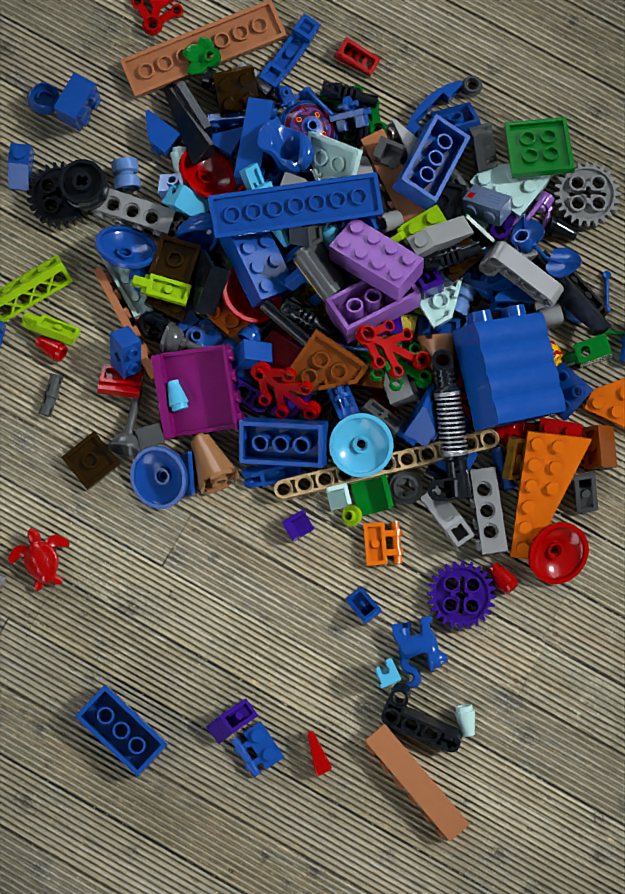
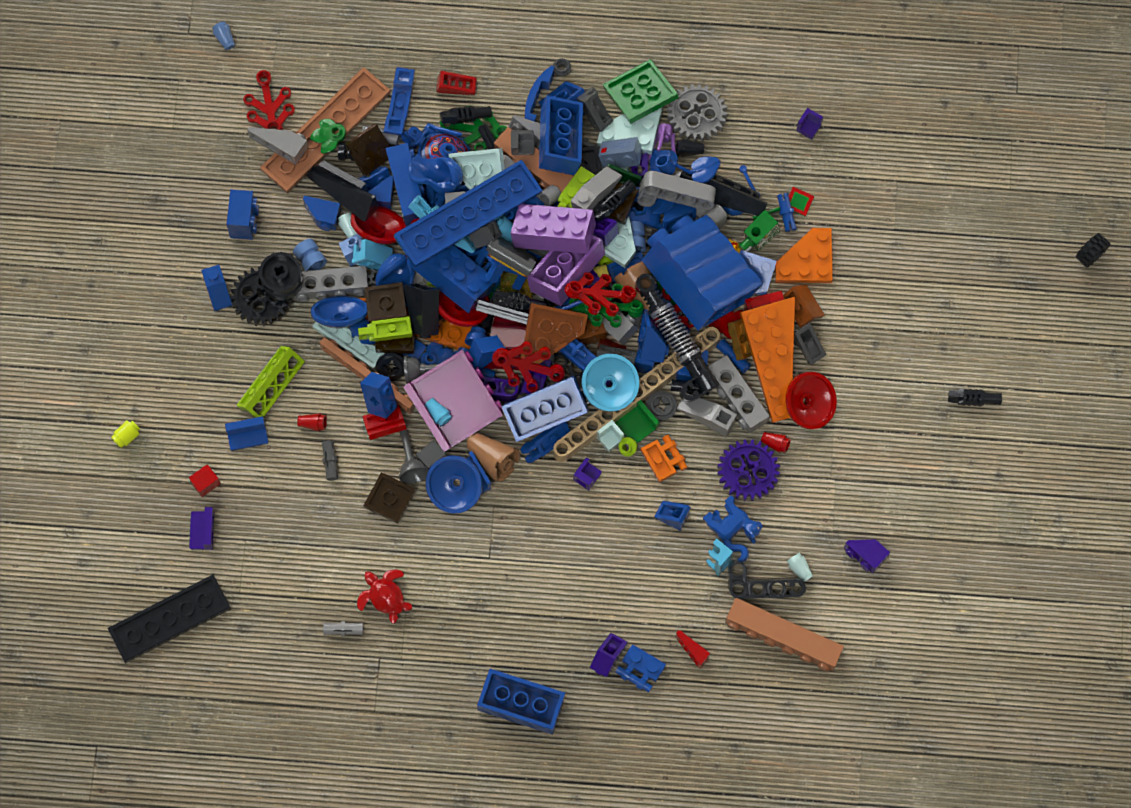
camera: 30 degrees left, 10 degrees down
(43, 98) = (210, 225): blue hair -> none
(51, 328) = (304, 405): lime hinge -> none
(152, 44) = (282, 142): none -> light grey slope
(342, 119) = (482, 126): blue hips -> none
(542, 737) = (868, 552): none -> dark purple slope

